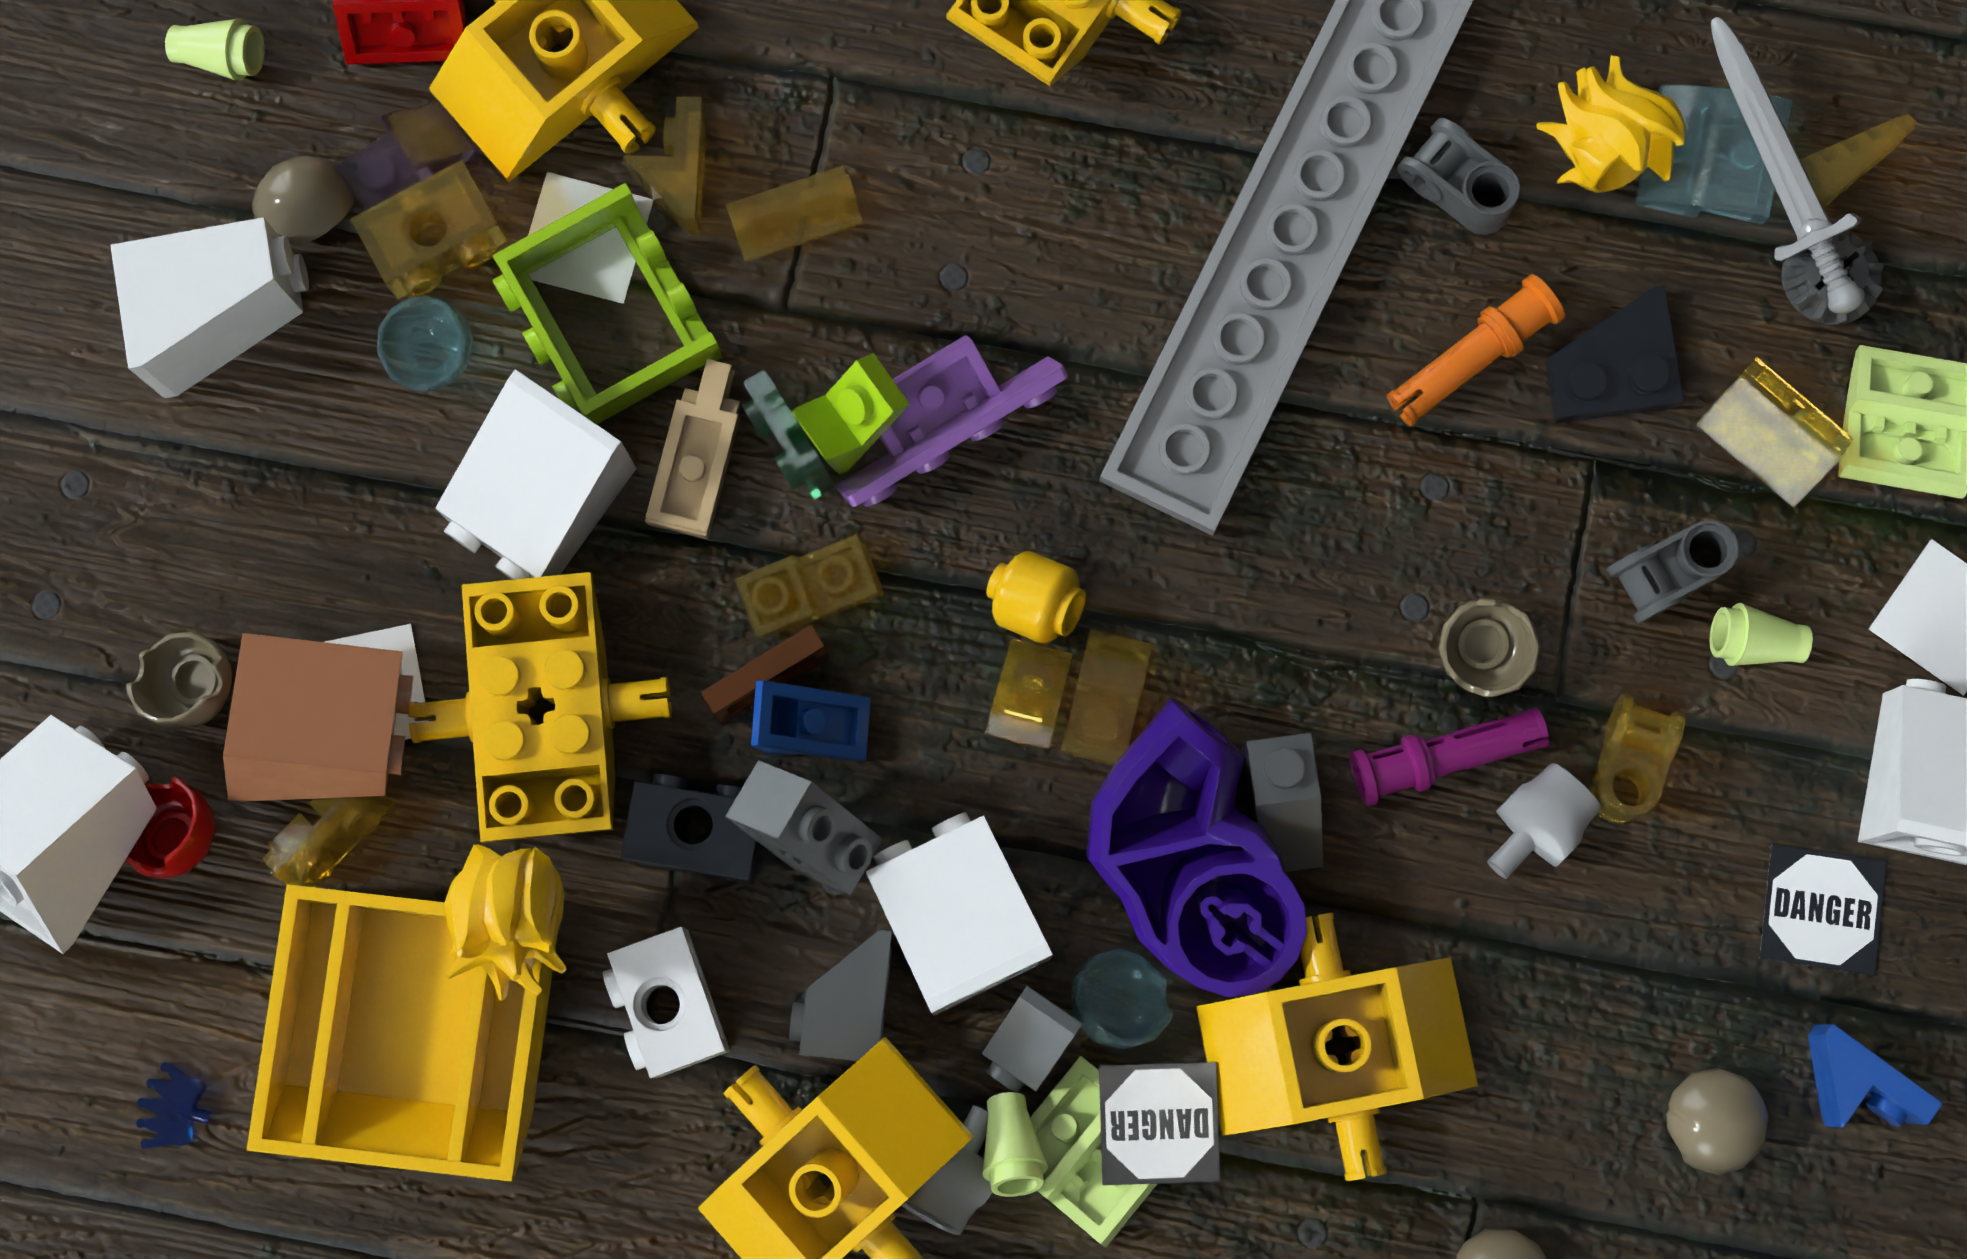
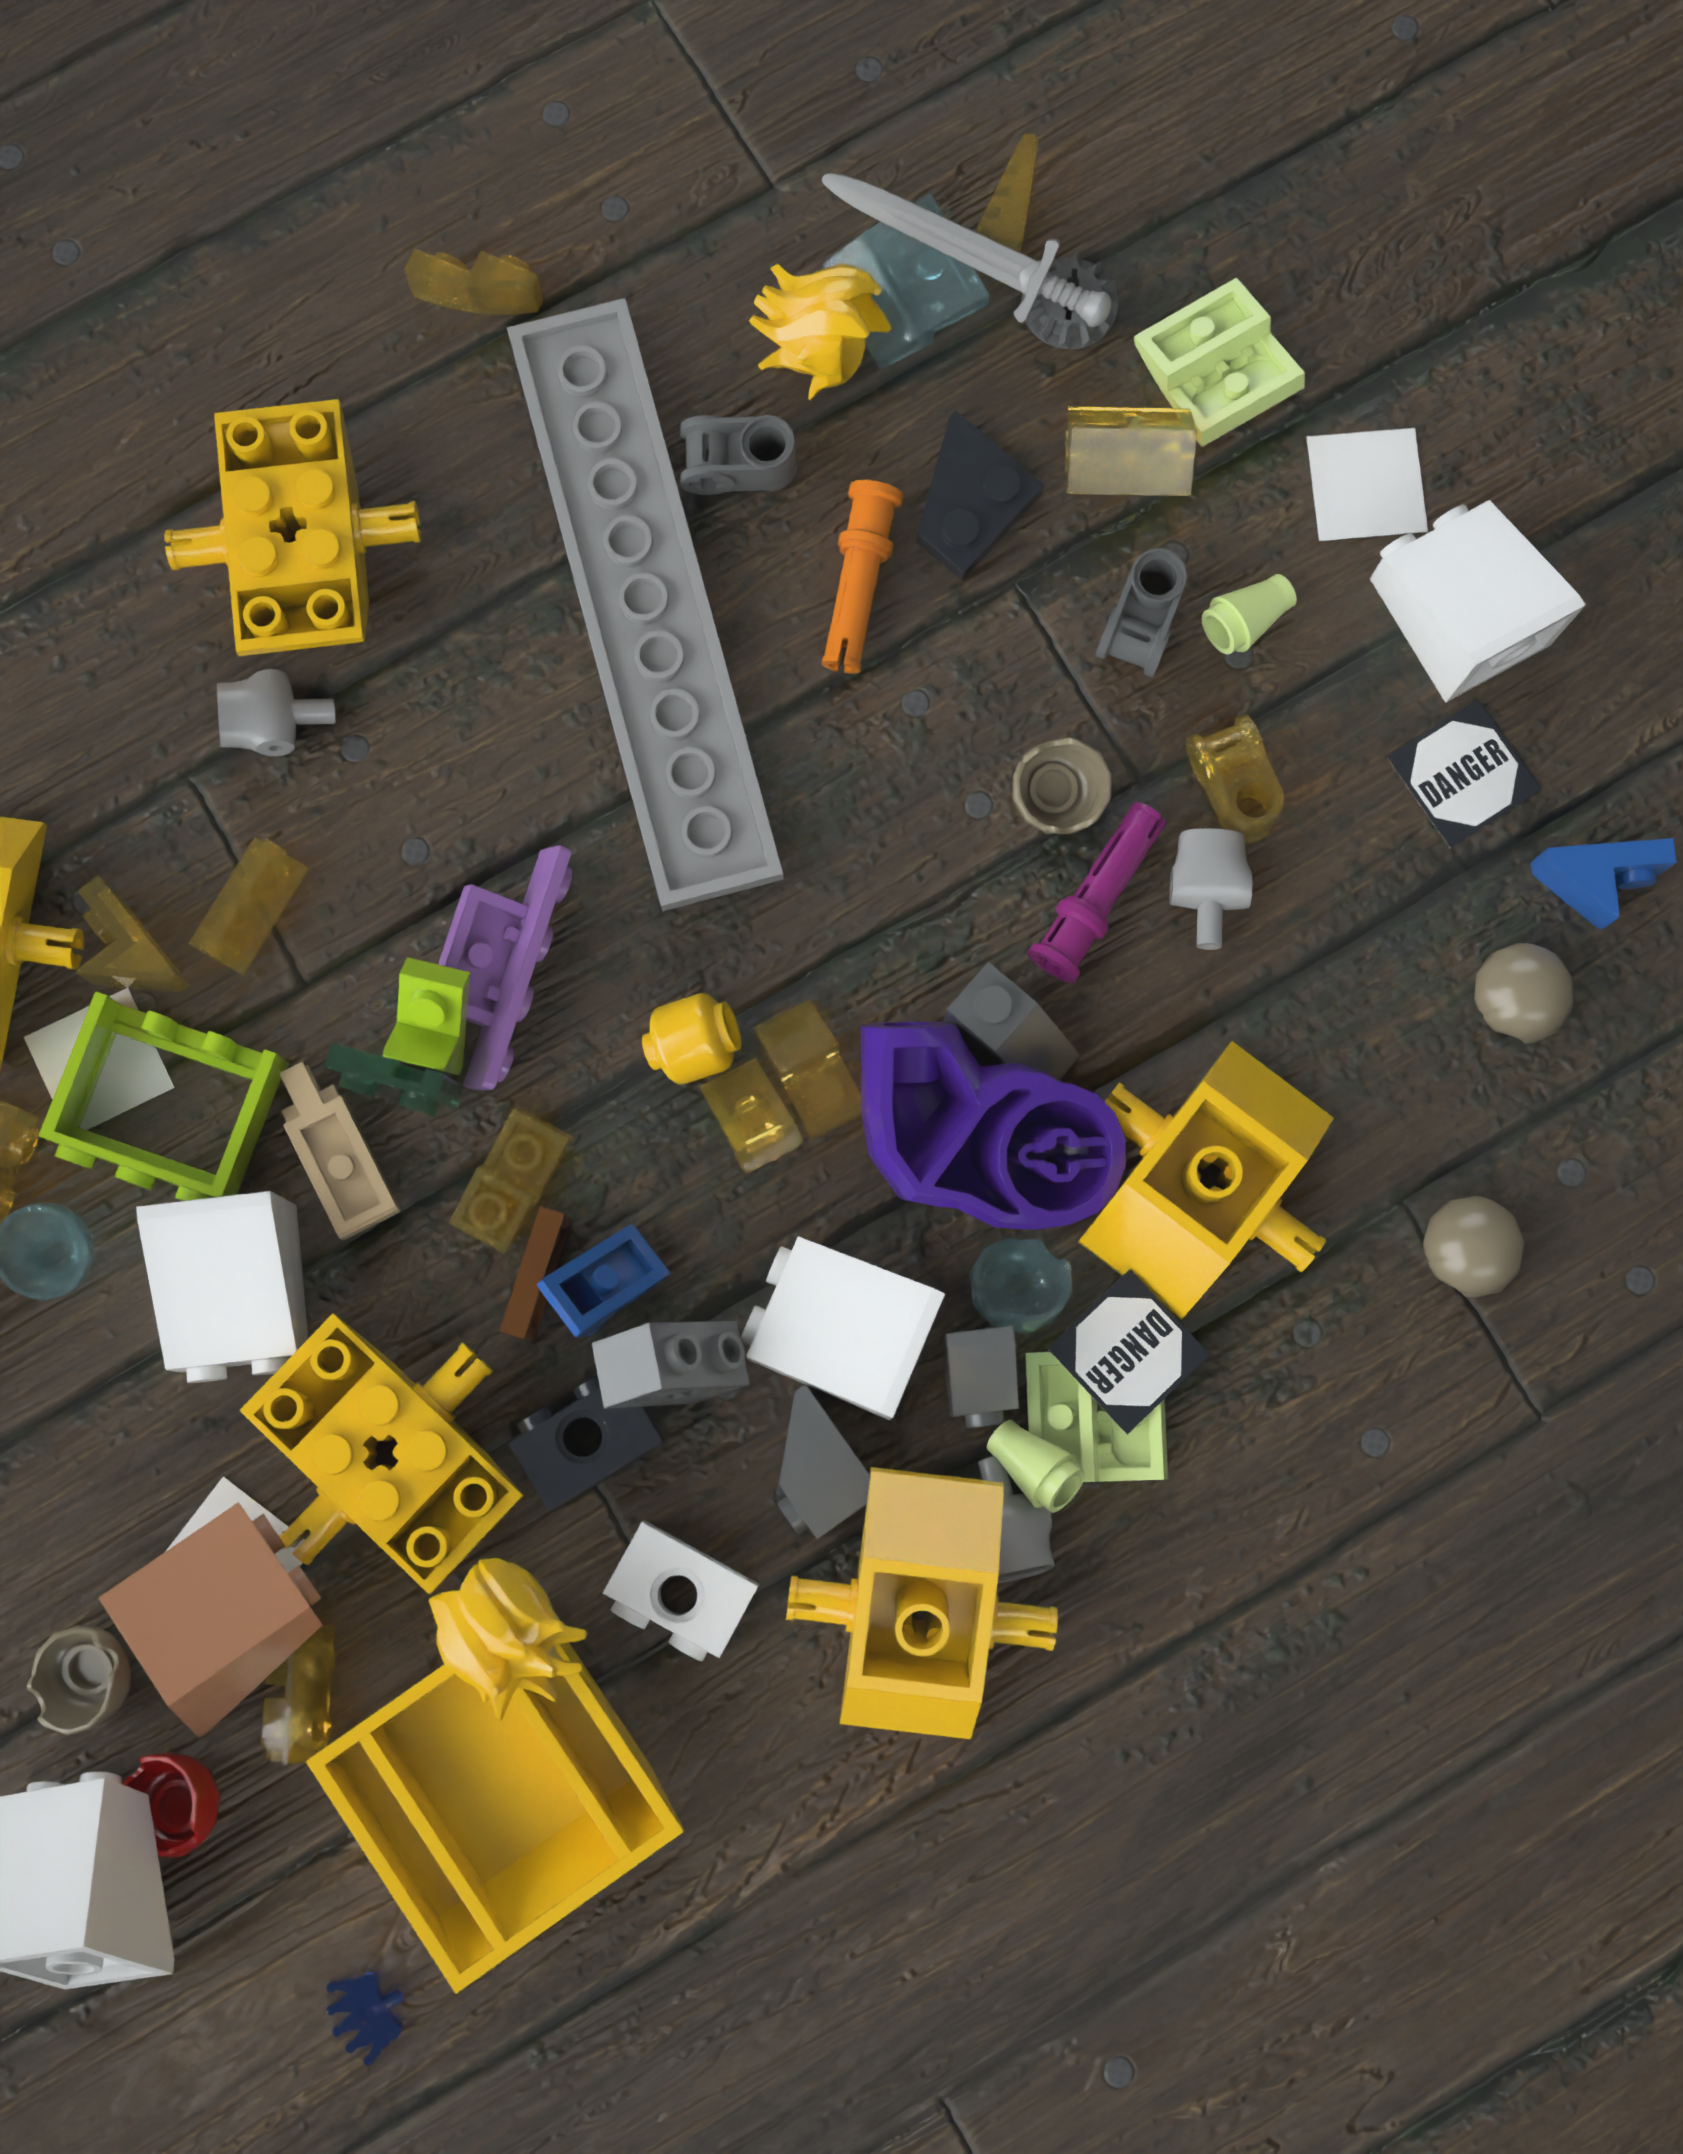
camera: 45 degrees left, 0 degrees up
(930, 77) = (264, 714): none -> light grey piece

